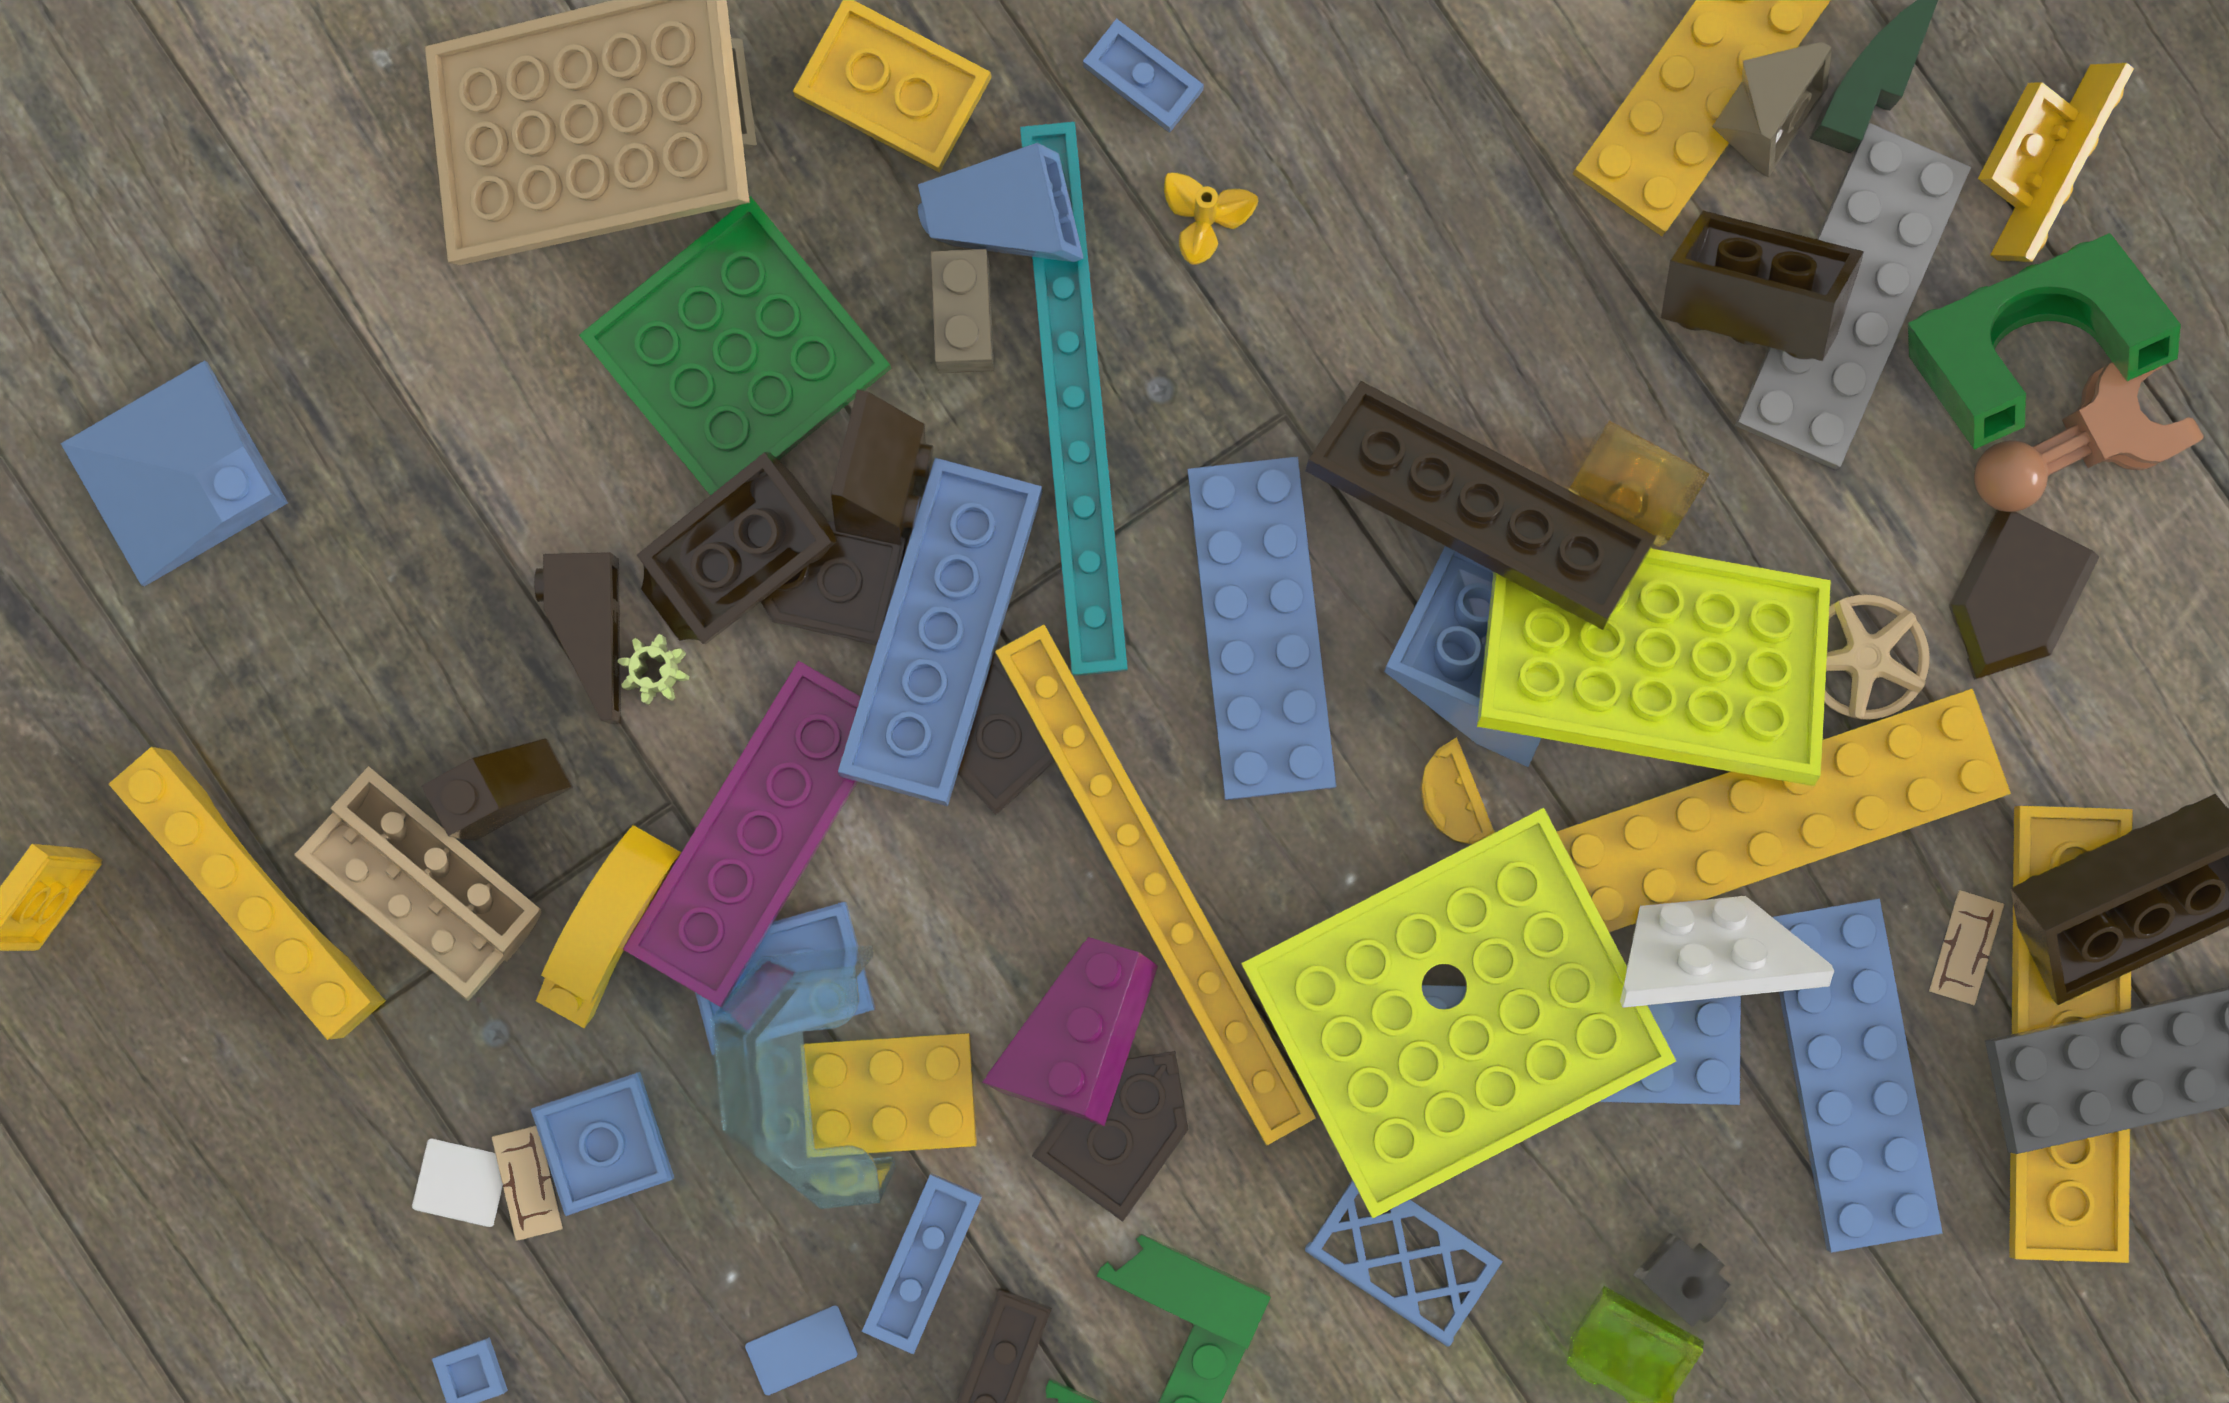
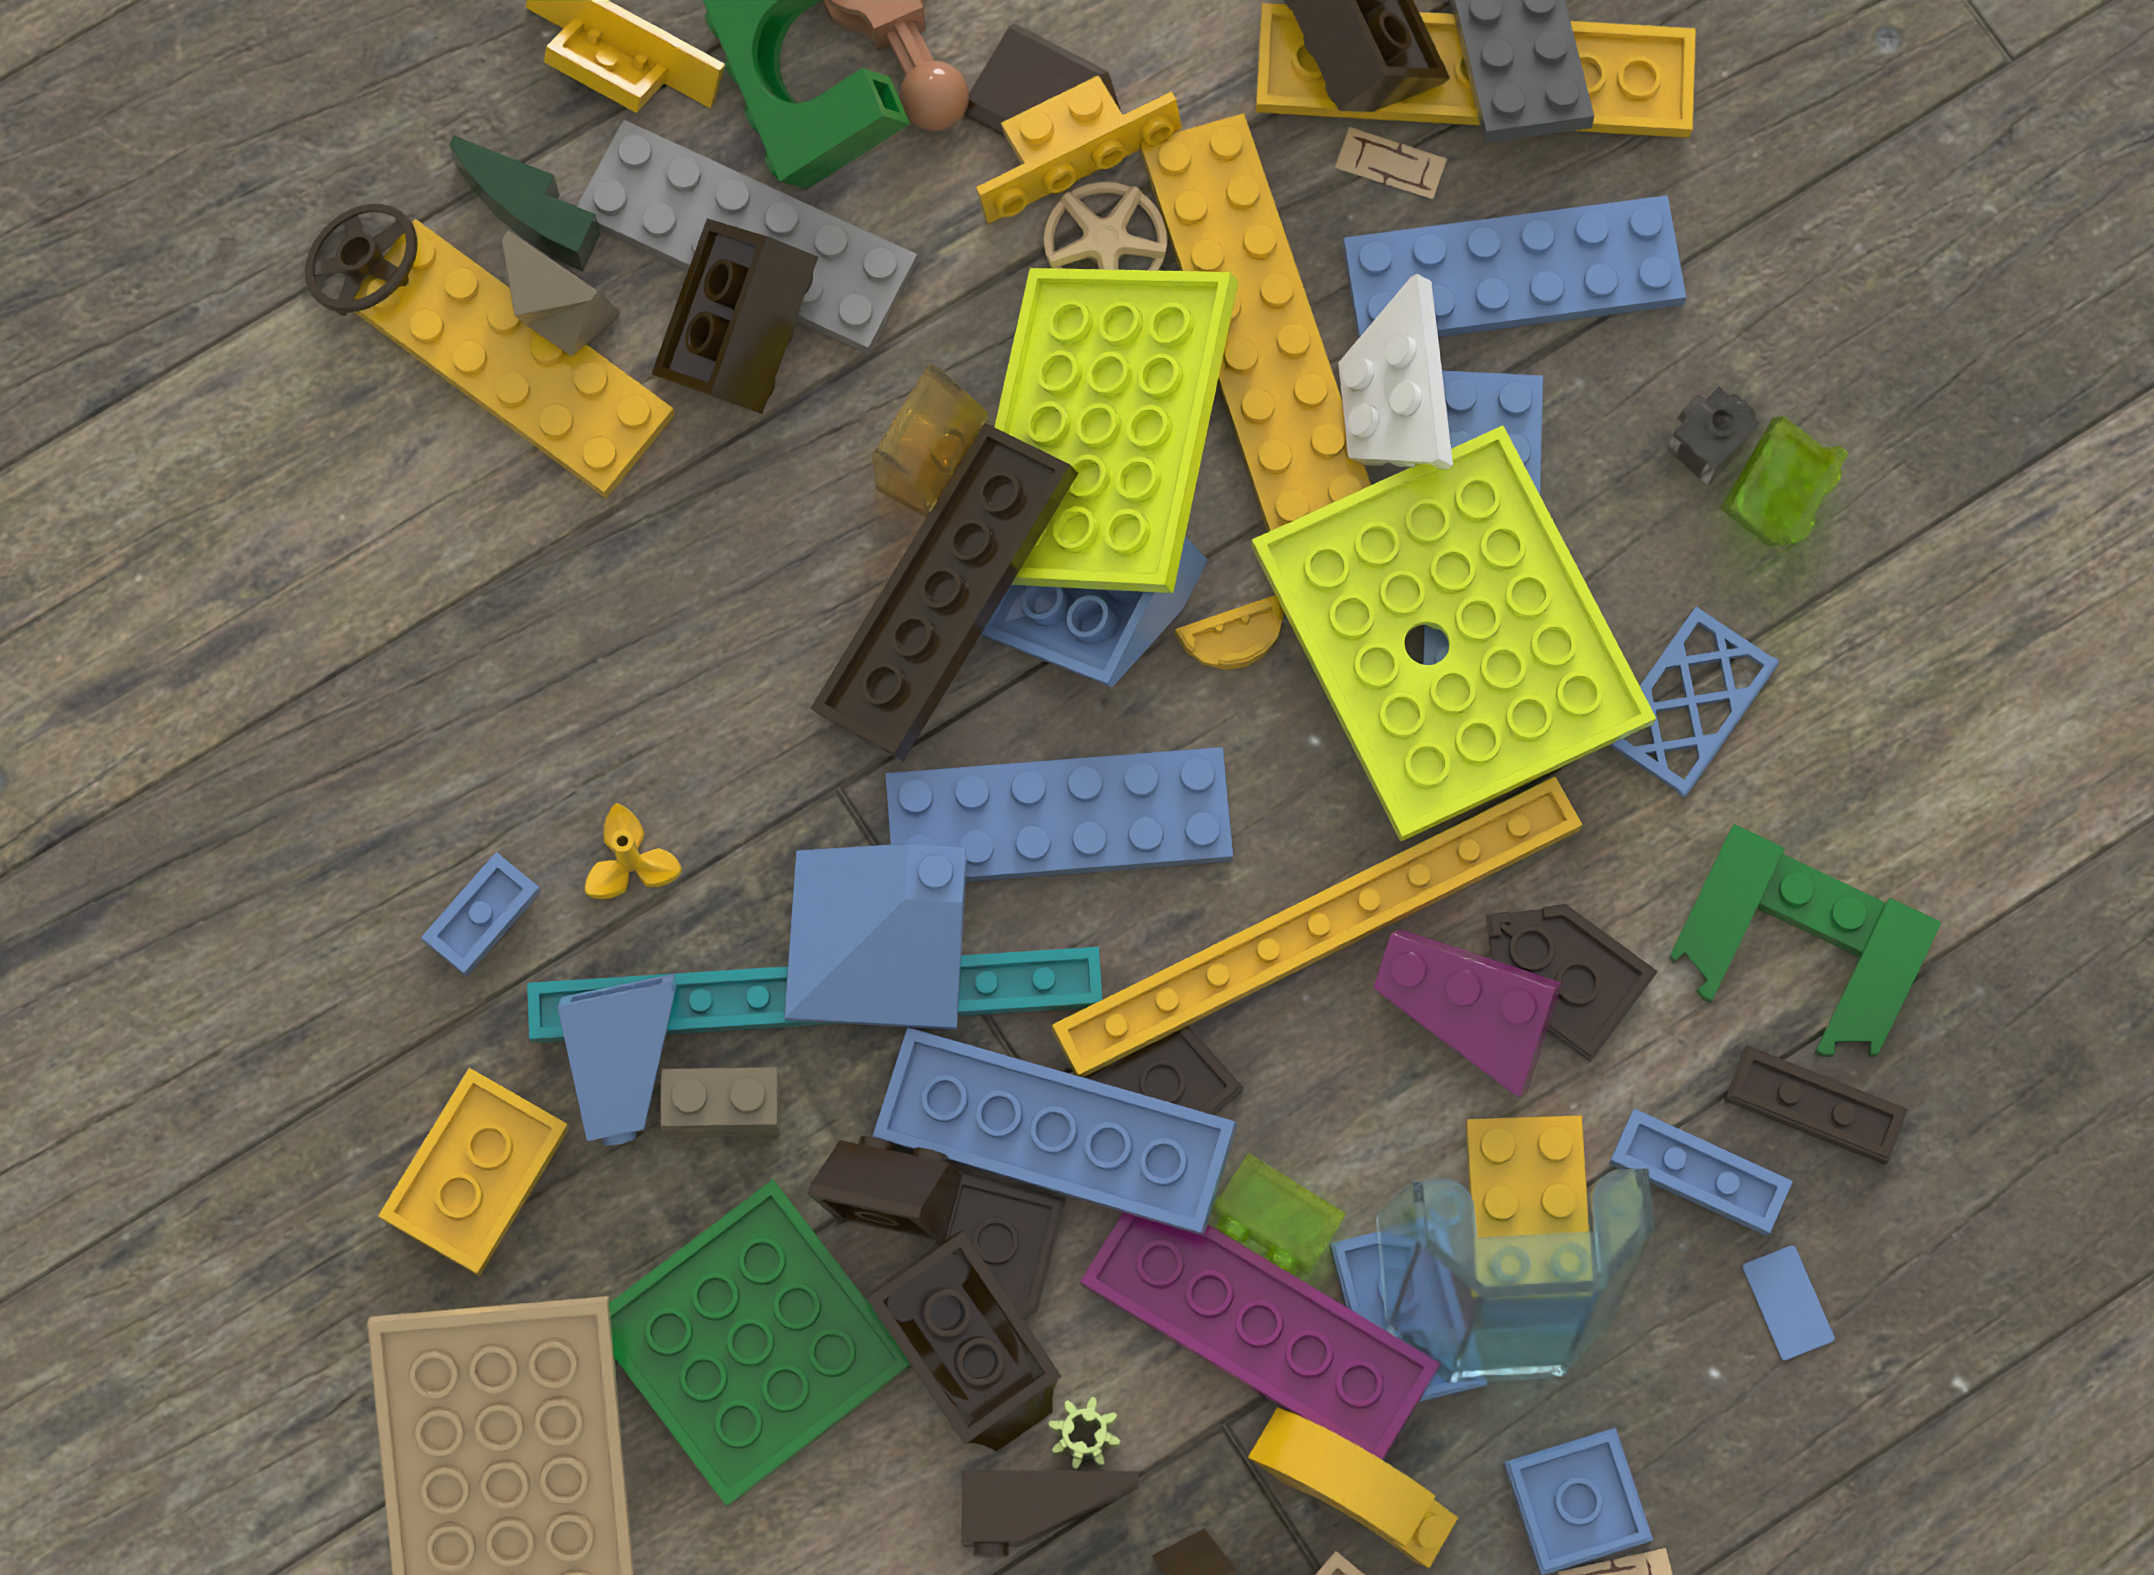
camera: 95 degrees left, 10 degrees down
(867, 848) = (1277, 1216): none -> clear neon green bracket
(1126, 452) = (877, 935): none -> medium blue slope
(1970, 616) = (1071, 140): none -> yellow bracket

